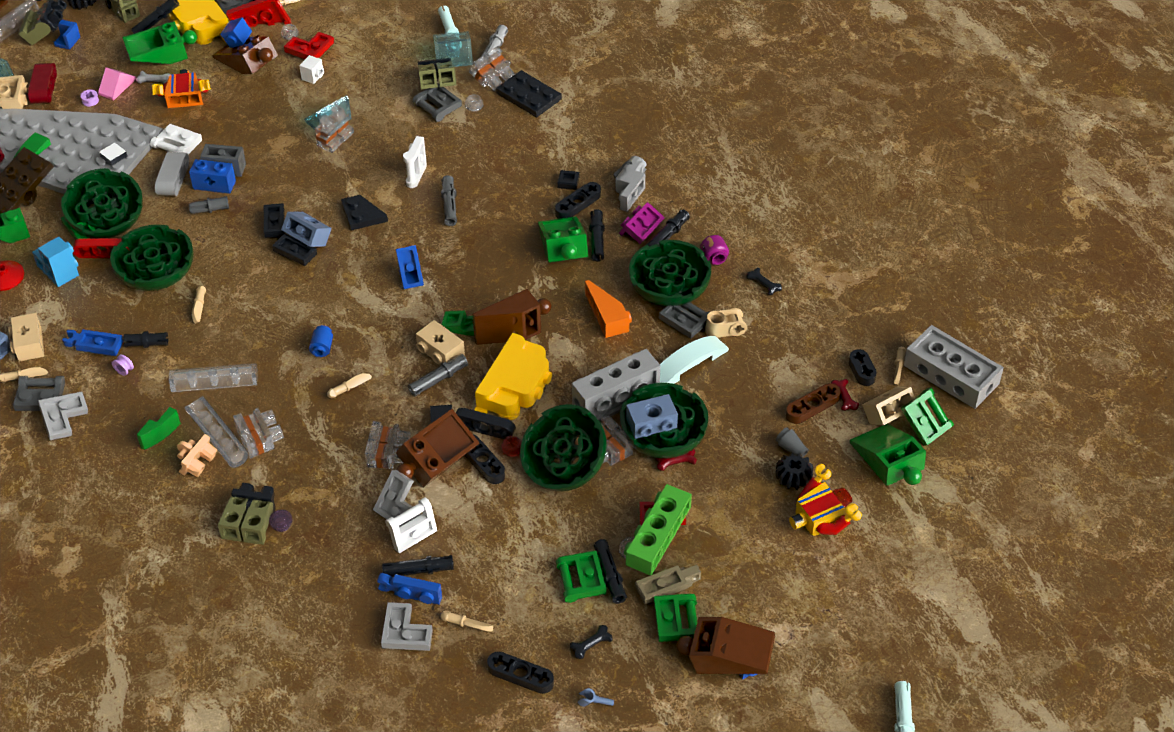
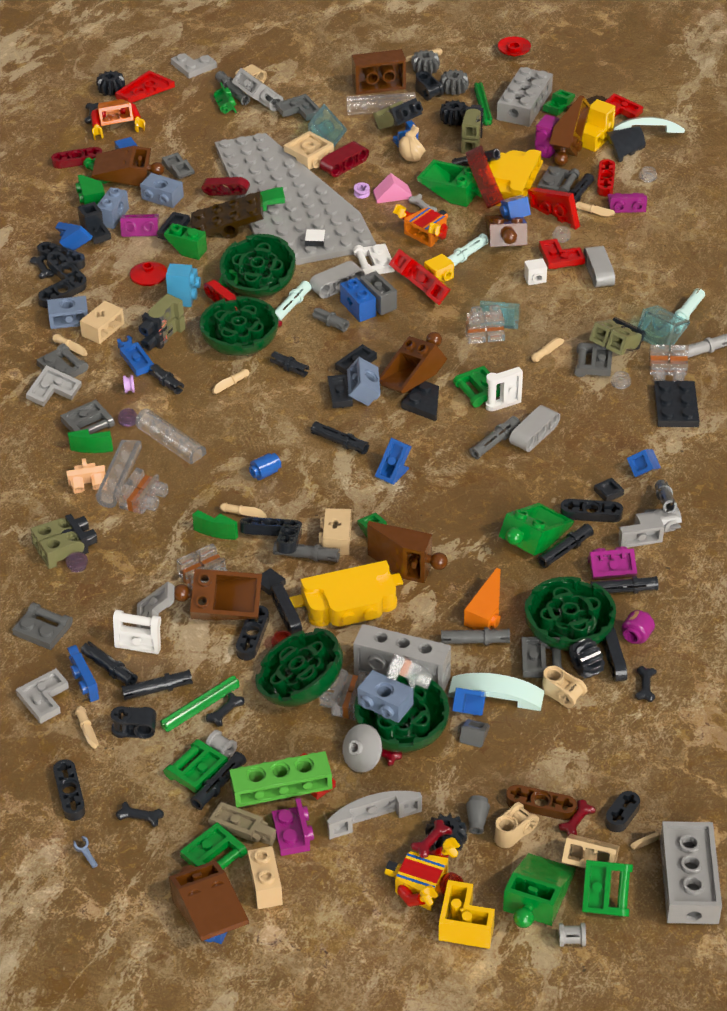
camera: 50 degrees right, 5 degrees down
(85, 299) = (162, 322): none -> hips
(87, 39) = (410, 147): none -> tan hat
(122, 414) = (86, 415): none -> dark grey plate
(157, 207) = (302, 290): none -> light aqua pin
(159, 389) = (127, 417): none -> clear purple plate
(184, 22) = (484, 176): none -> clear red slope
(226, 258) = (289, 364): none -> black pin
(237, 128) = (420, 276): none -> red slope
(238, 93) = (460, 254): none -> light aqua pin
(240, 114) = (441, 267): none -> yellow brick
(325, 190) = (413, 363): none -> reddish brown slope
(326, 592) = (41, 632): none -> dark grey plate
(347, 280) = (347, 441): none -> black pin
(350, 36) = (599, 266): none -> light grey beam
(354, 408) = (217, 527): none -> green slope
(386, 169) = (478, 379): none -> green plate
(394, 119) = (545, 350): none -> tan piece
(404, 369) = (287, 530): none -> black beam
(467, 174) = (534, 428): none -> light grey beam
(477, 541) = (158, 684): none -> black pin
(498, 587) = (136, 722): none -> black piece
(519, 543) = (199, 703): none -> green axle
(543, 533) = (233, 701): none -> black piece
(568, 145) = (643, 462): none -> blue panel
(577, 546) = (221, 743): none -> light grey bush
(602, 152) = (665, 495): none -> dark grey pin
(632, 333) = (475, 636): none -> dark grey pin
(649, 386) = (410, 669): none -> clear hips
(674, 454) = (369, 748): none -> light grey dish
(688, 378) = (469, 701): none -> blue panel
(703, 552) = (292, 830): none -> magenta bracket
(714, 397) = (474, 733): none -> dark grey slope
(718, 292) = (586, 658): none -> black gear
(735, 599) = (265, 877): none -> tan brick
(736, 282) = (615, 656): none -> black beam
(739, 479) = (371, 806): none -> light grey slope
(804, 487) = (439, 830): none -> dark red piece
(821, 431) = (514, 825): none -> tan piece
(879, 511) = (462, 921): none -> yellow brick
(944, 462) = (572, 934): none -> light grey bush

